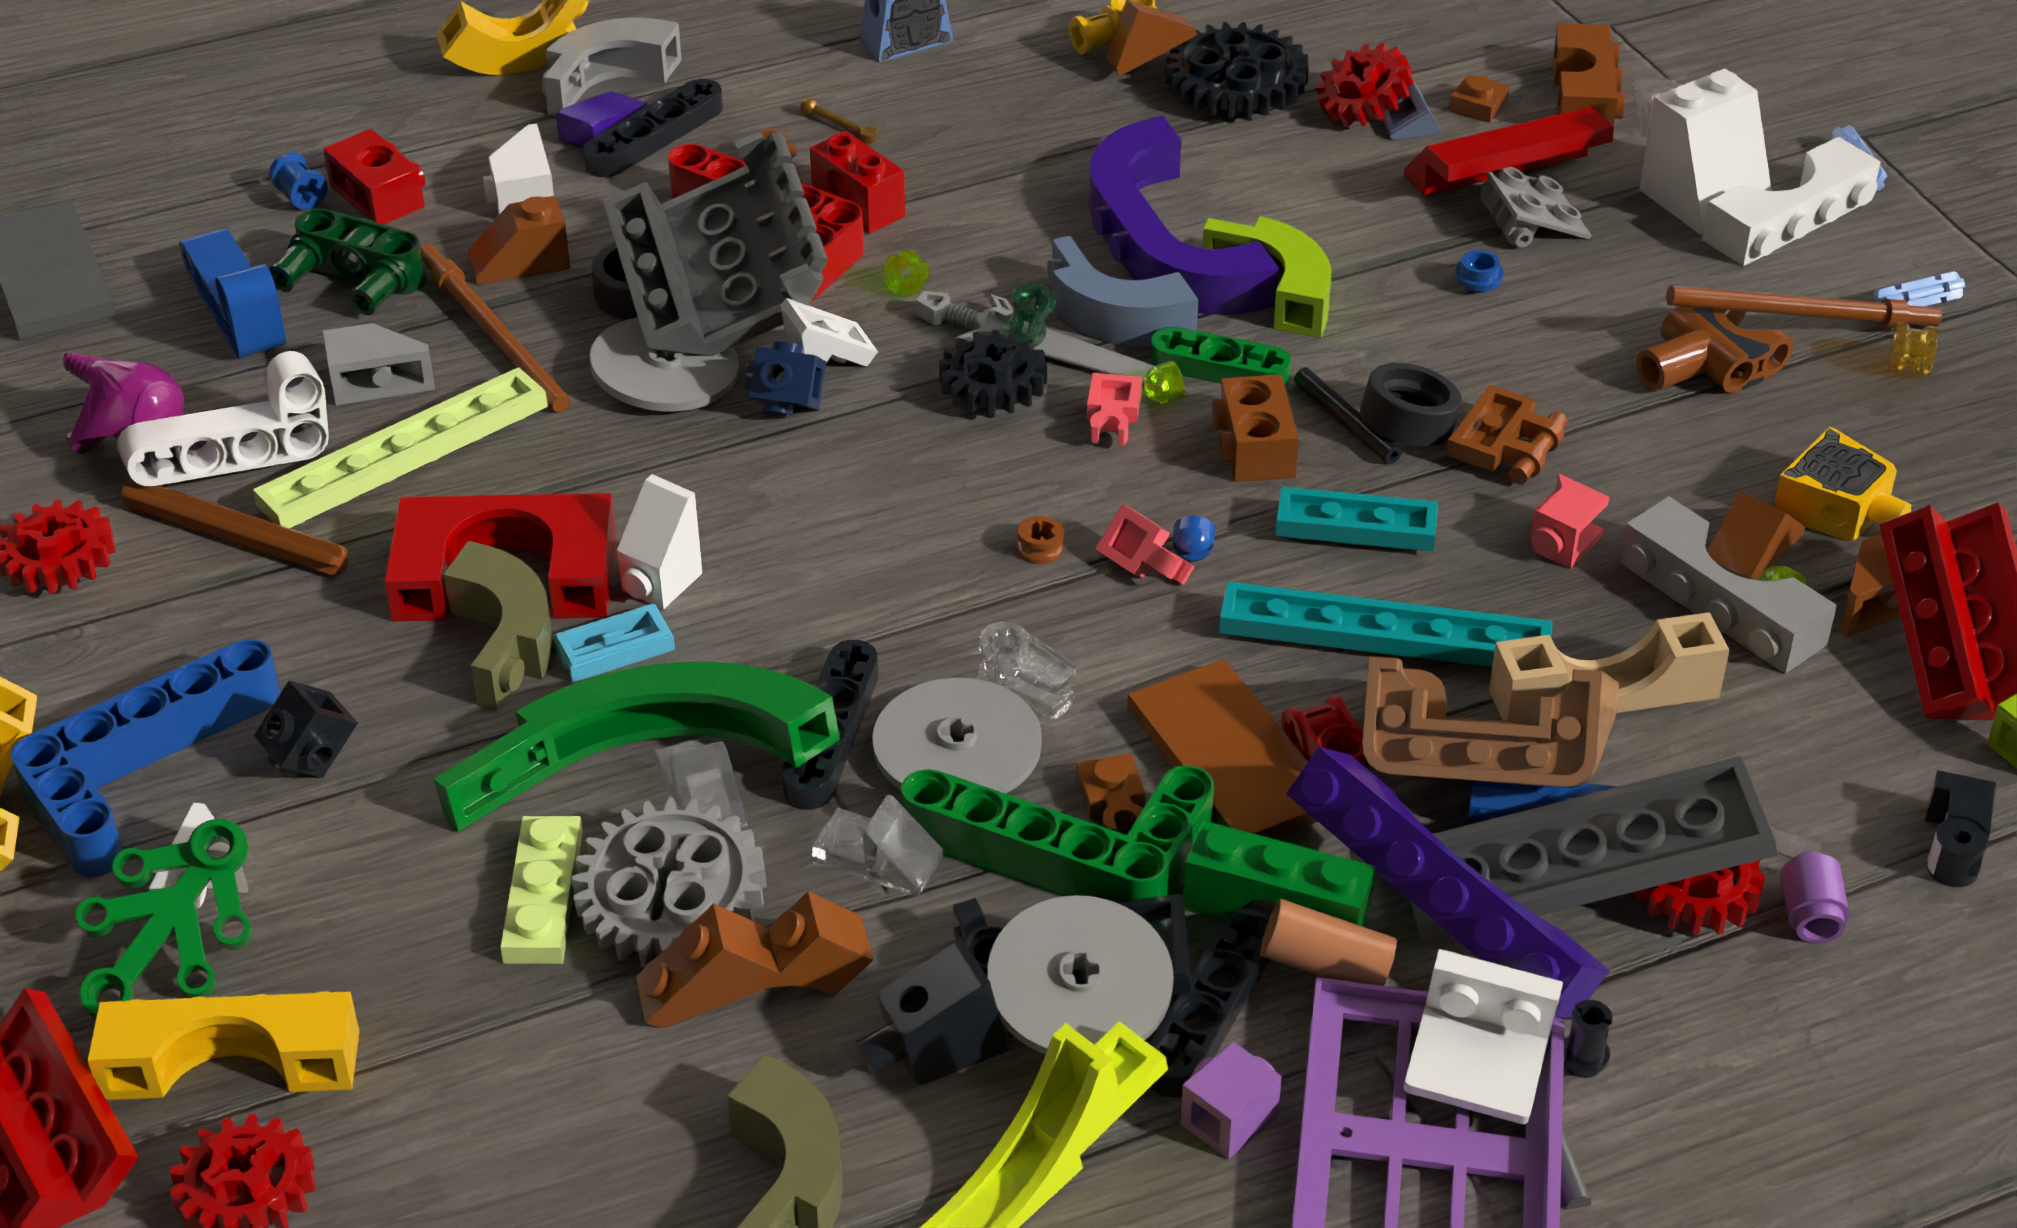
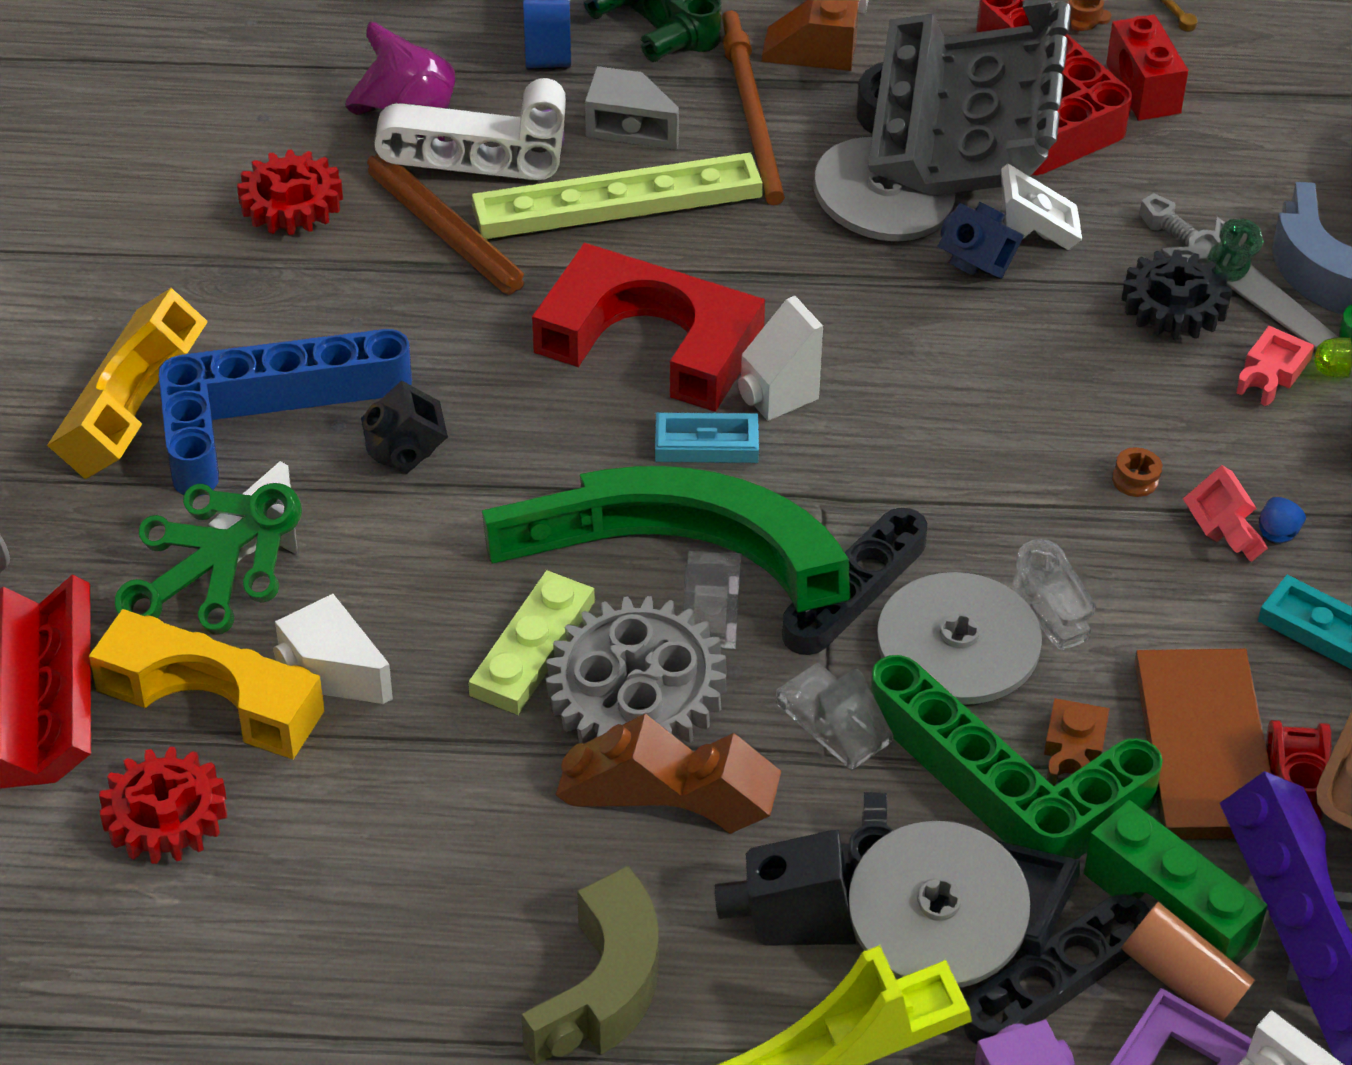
camera: 25 degrees right, 5 degrees up
(346, 958) = (336, 649): none -> white slope
(509, 597) = (630, 358): olive arch -> none
(902, 284) = (1147, 182): clear neon green plate -> none

